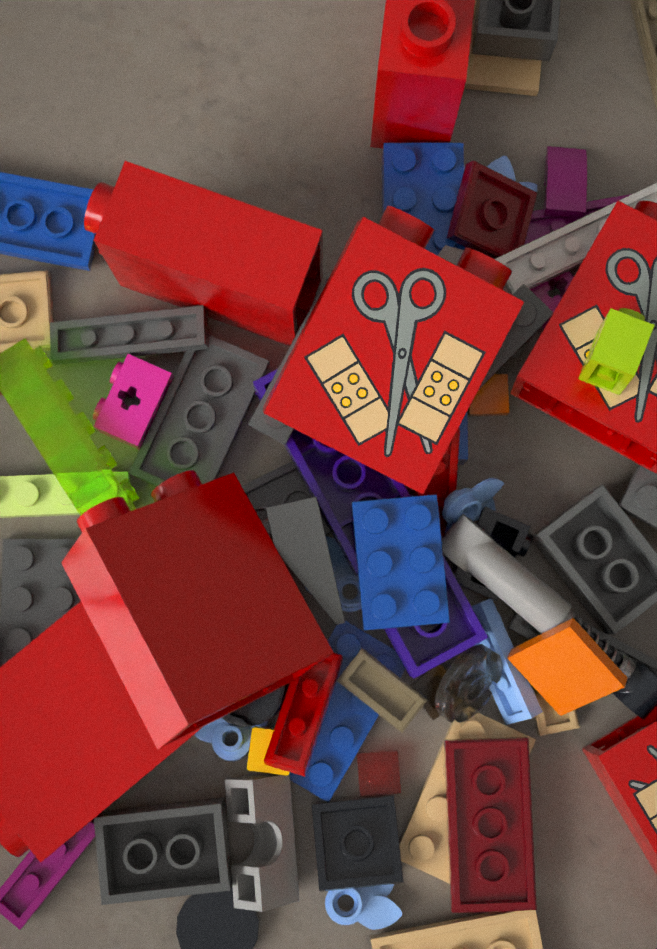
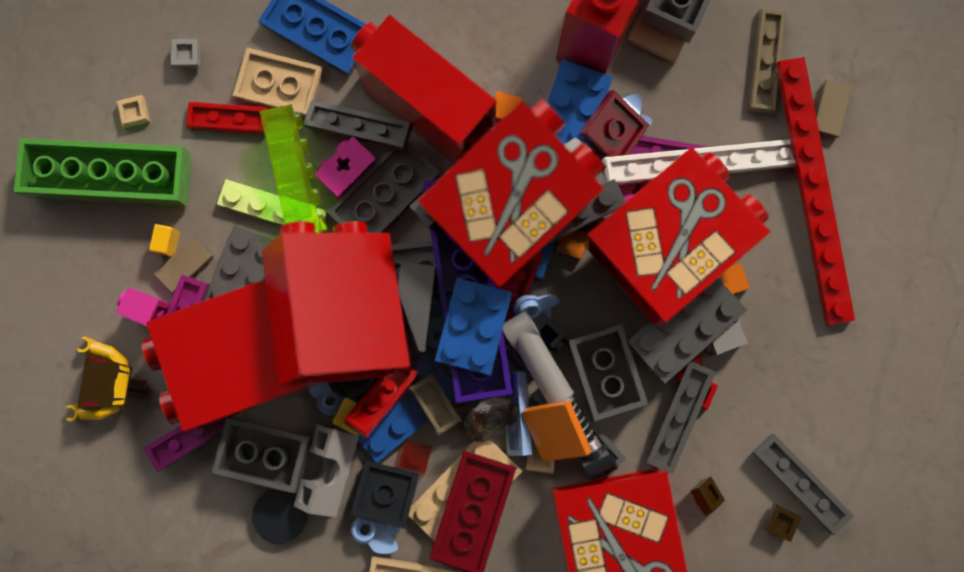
camera: 20 degrees right, 0 degrees up
(333, 235) = (505, 104): none -> orange tile
(565, 182) = (671, 124): magenta slope -> none
(616, 350) = (652, 239): lime brick -> none

